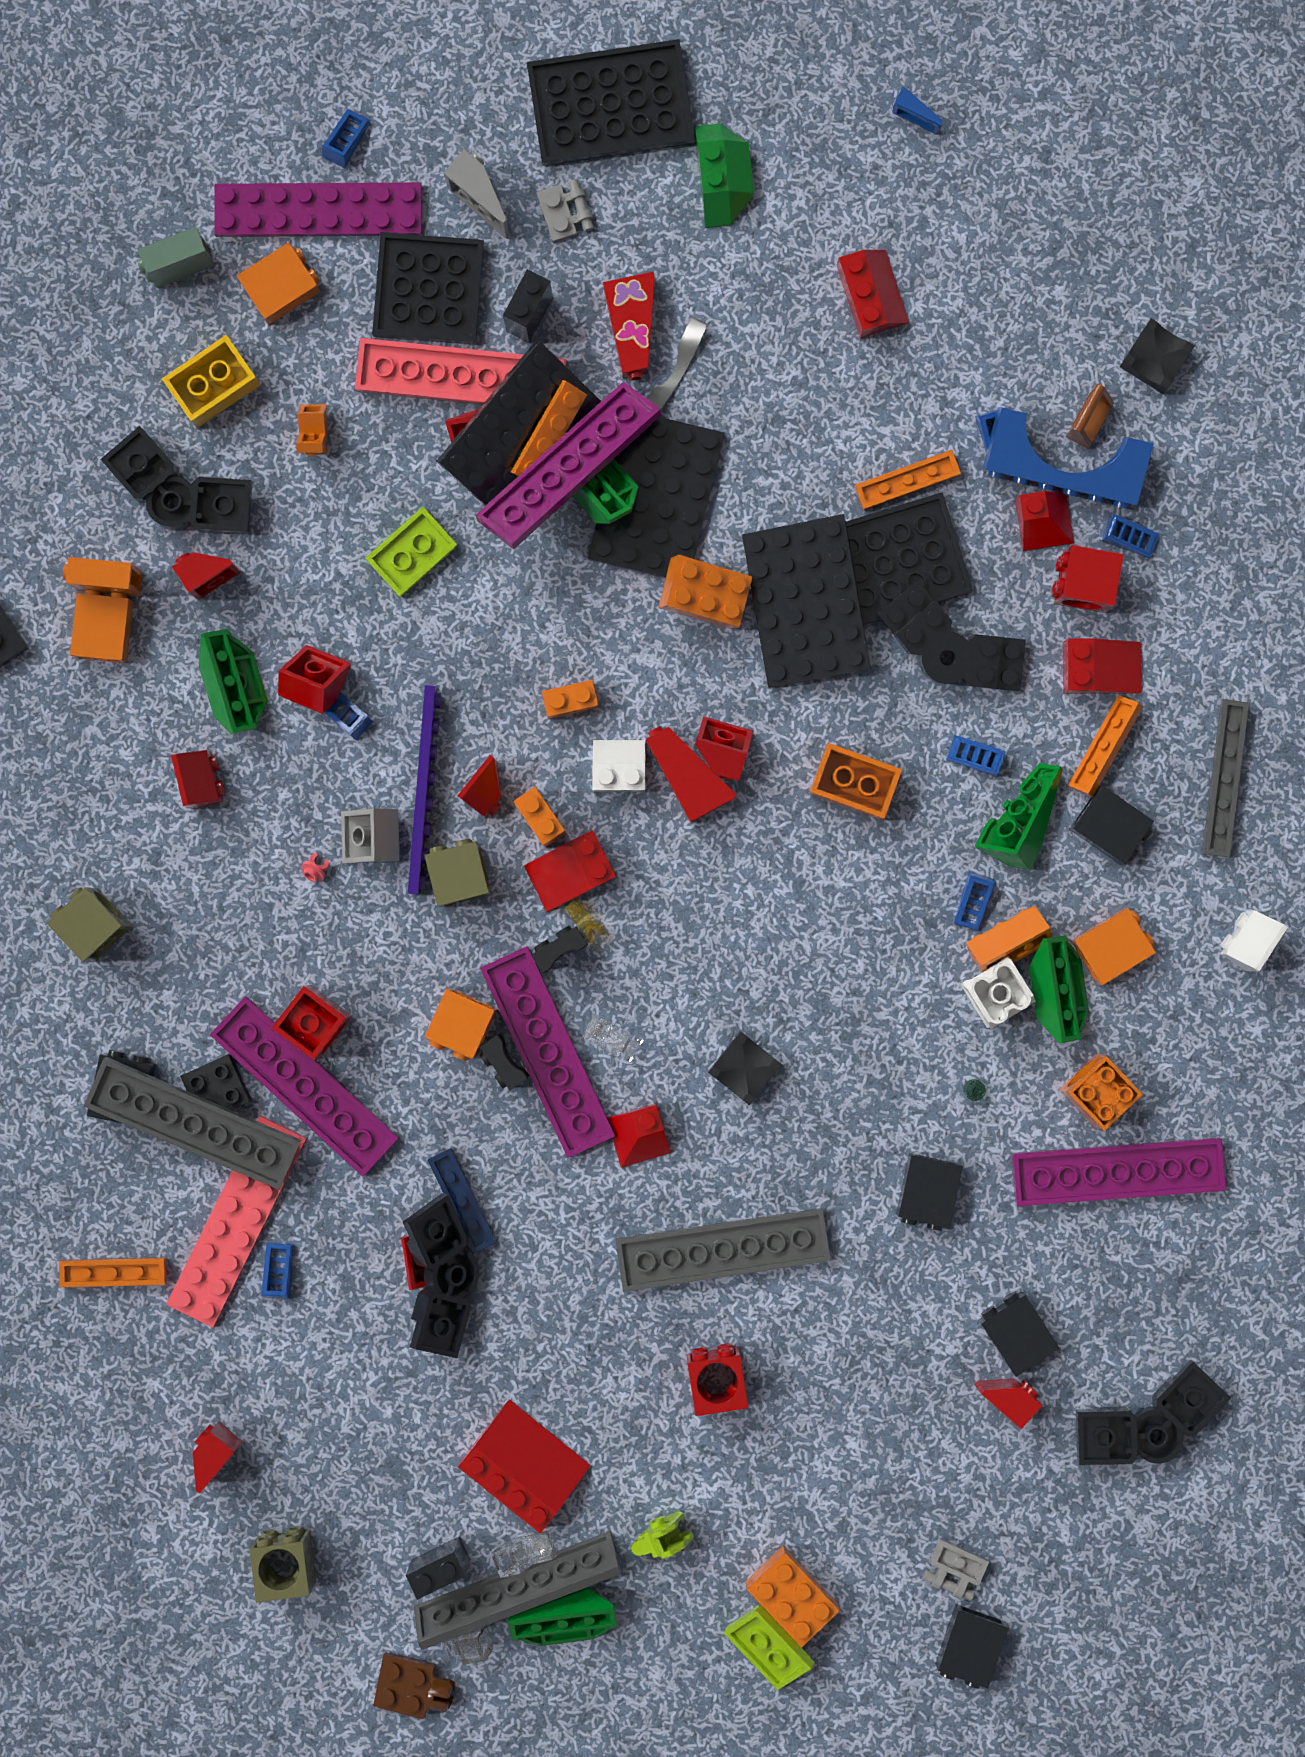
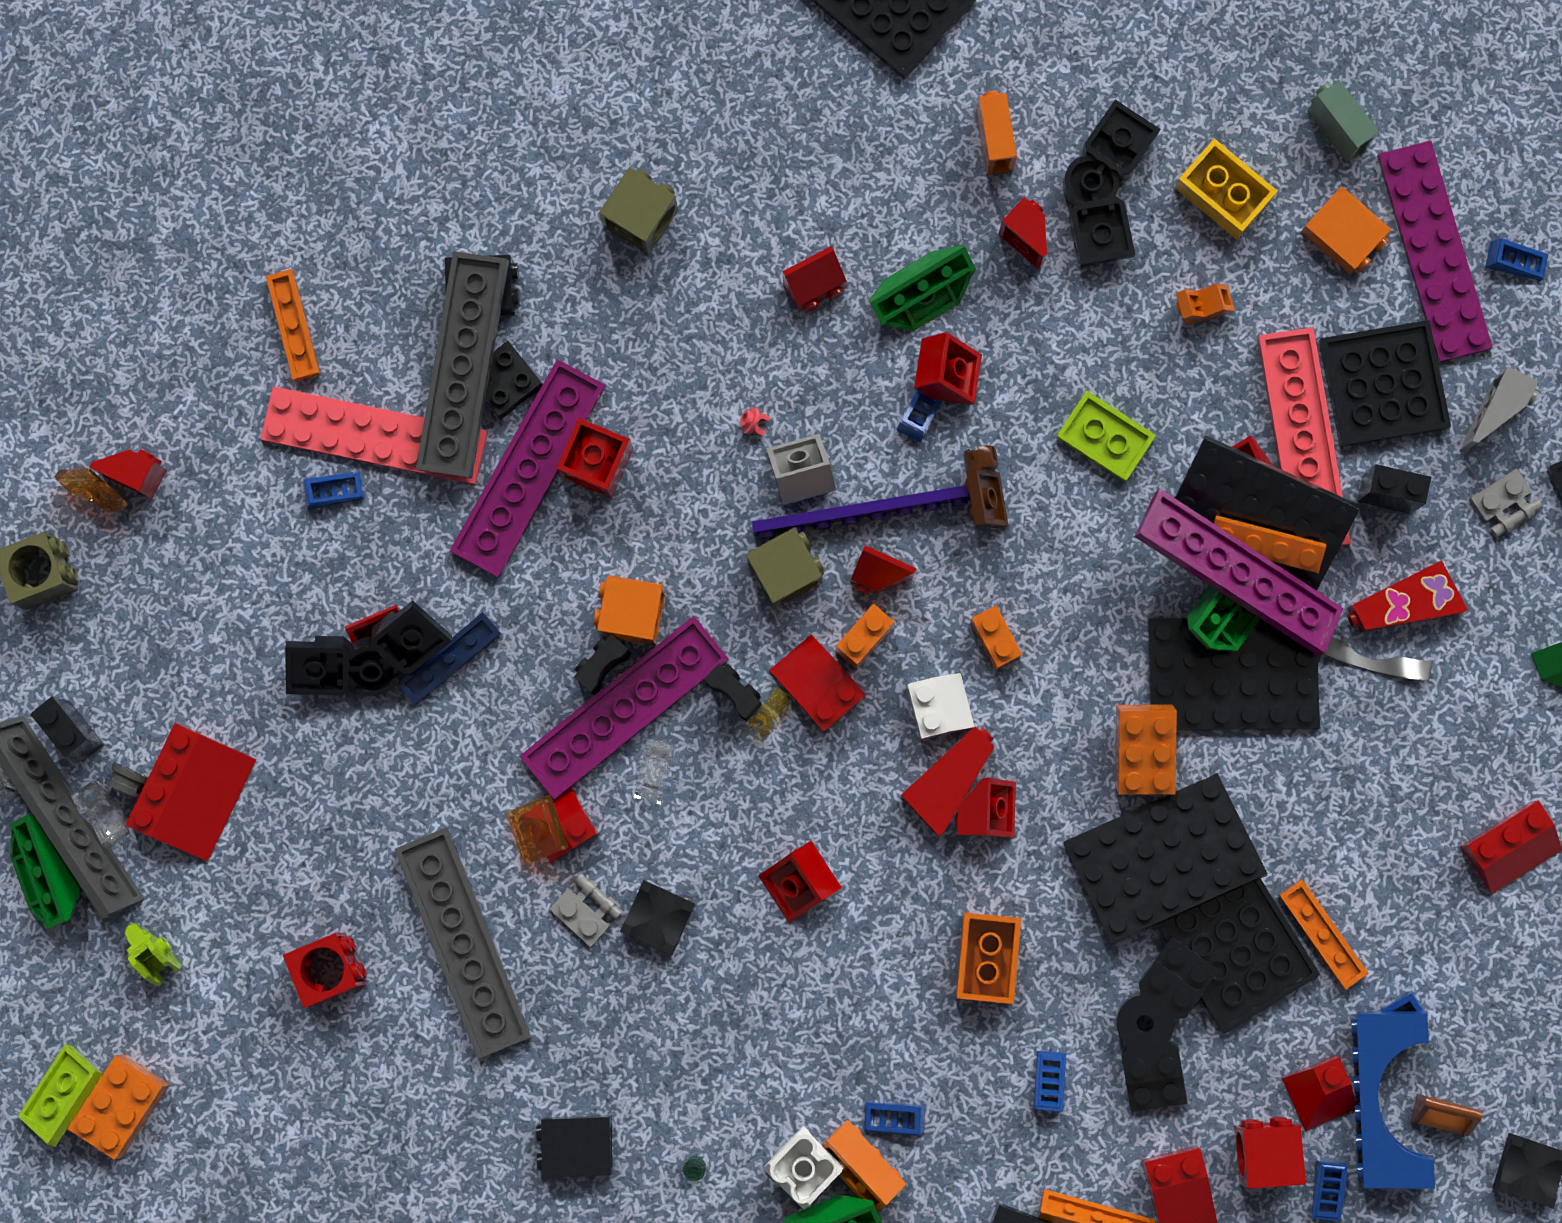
camera: 85 degrees right, 5 degrees down
(101, 627) = (944, 145): orange brick -> none
(216, 1496) = (90, 486): none -> clear orange tile
(430, 673) = (985, 487): none -> reddish brown plate
(498, 1523) = (126, 780): none -> dark grey wheel
(639, 1157) = (537, 830): none -> clear orange tile
(725, 1138) = (580, 916): none -> light grey plate
(744, 932) = (800, 881): none -> red slope
(1022, 827) = (984, 1150): green wedge -> none

